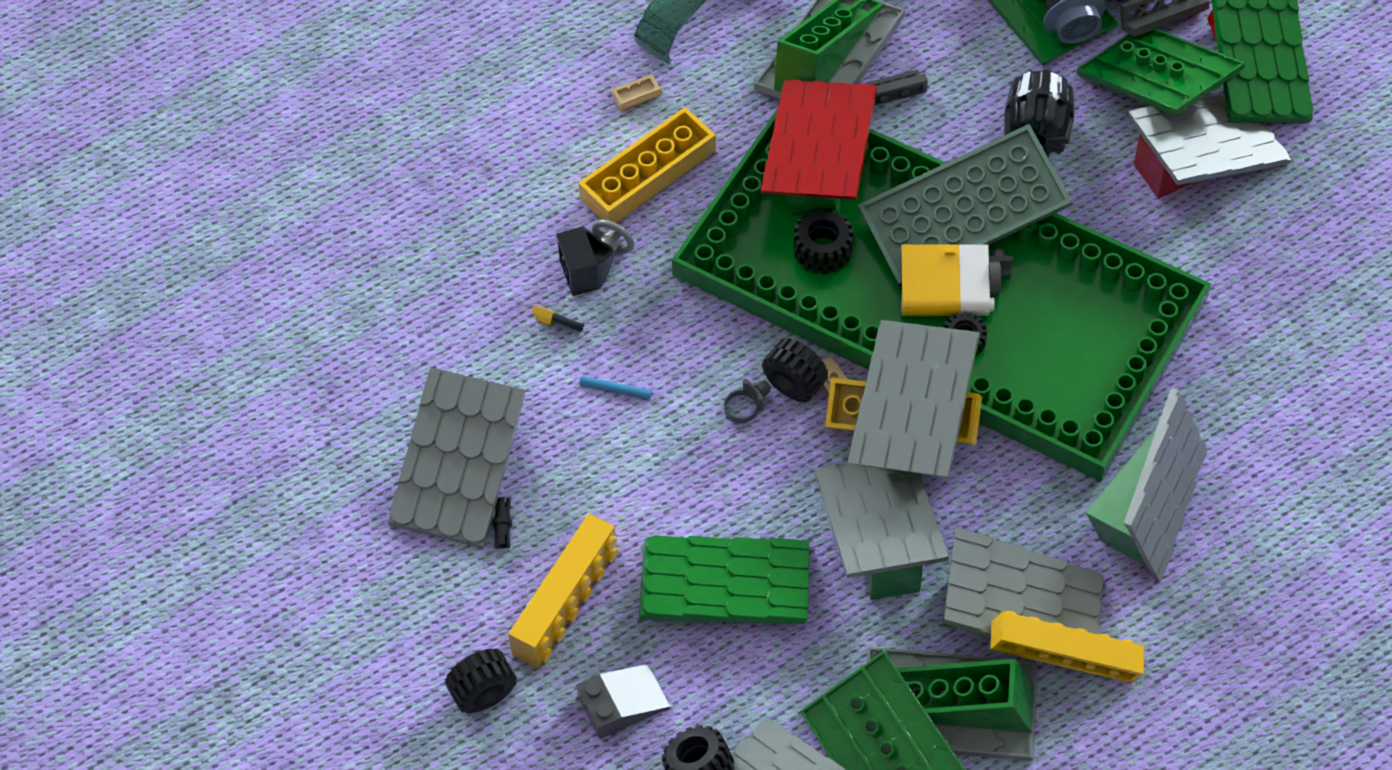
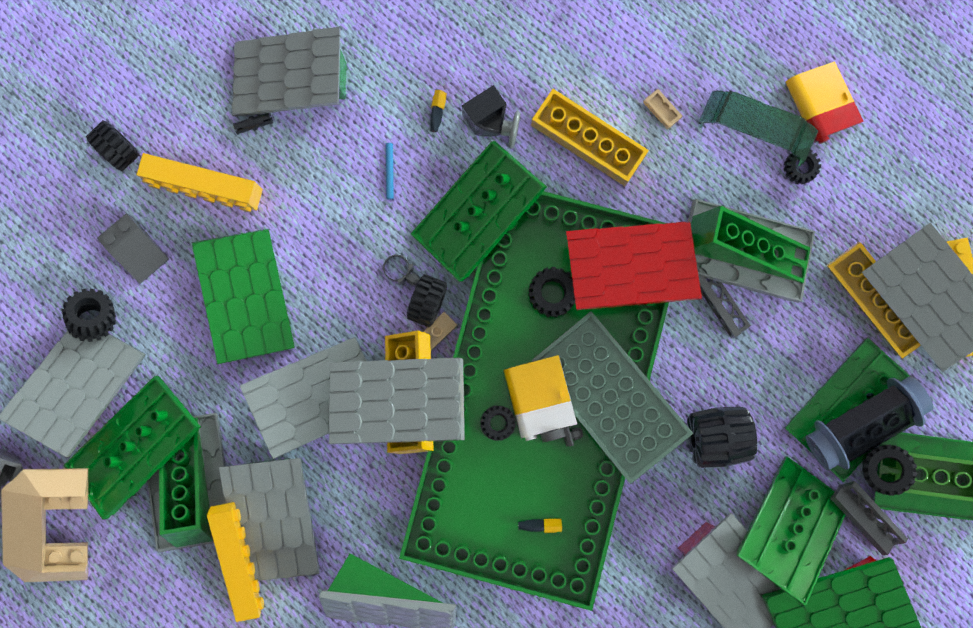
camera: 75 degrees right, 25 degrees up
(716, 308) = (478, 211): none -> green piece
(1100, 315) = (539, 525): none -> piece

